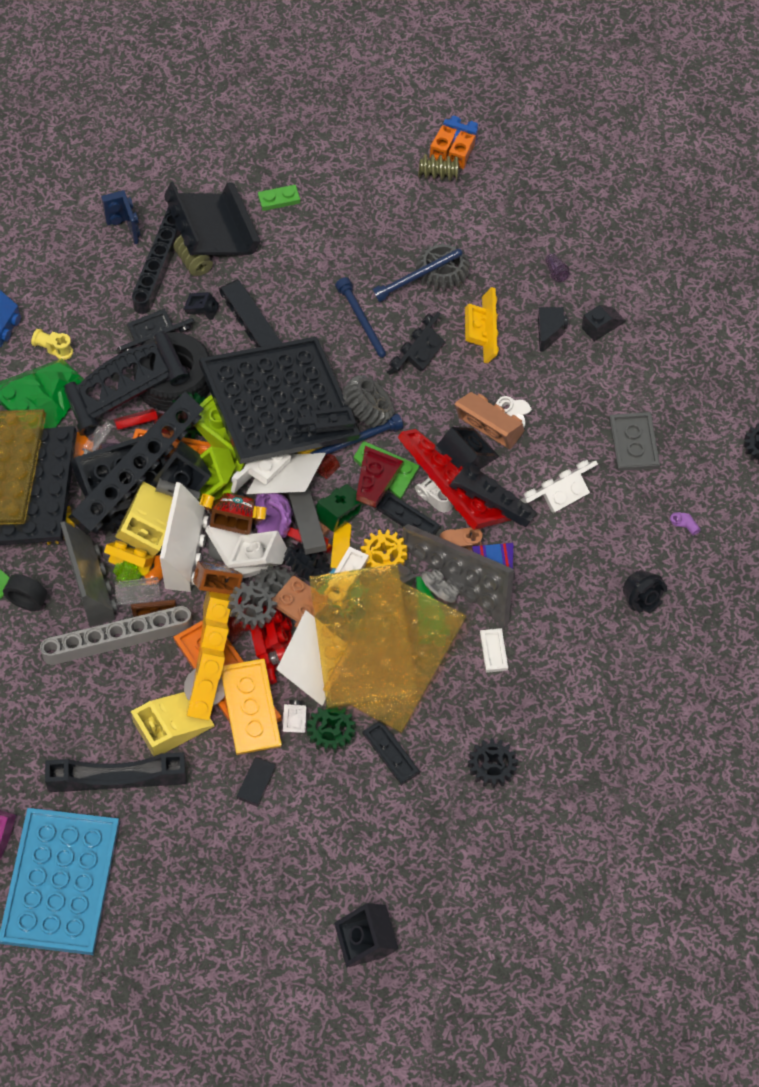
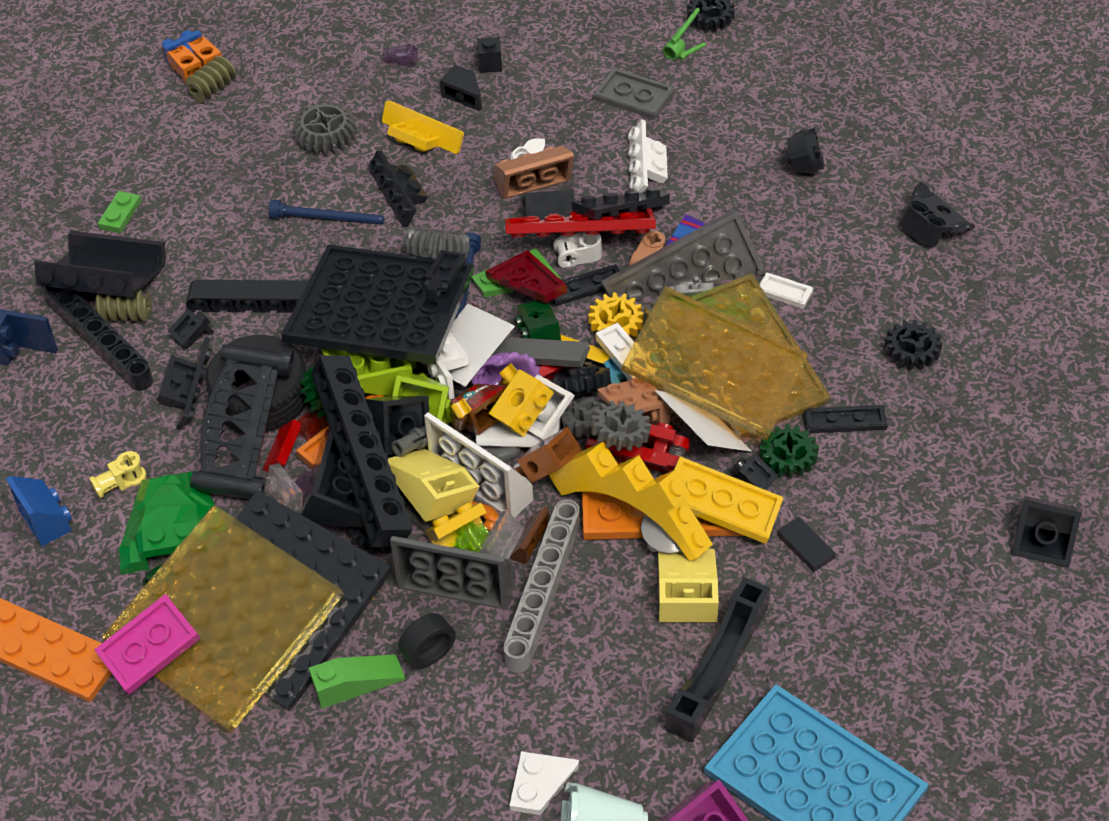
camera: 55 degrees left, 10 degrees down
(244, 535) = (521, 402): none -> yellow brick
(383, 291) = (312, 184): dark blue piece -> none
(653, 701) = (925, 220): none -> black piece
(686, 521) = (745, 99): medium lavender arm -> none
(704, 441) = (675, 47): none -> bright green plant

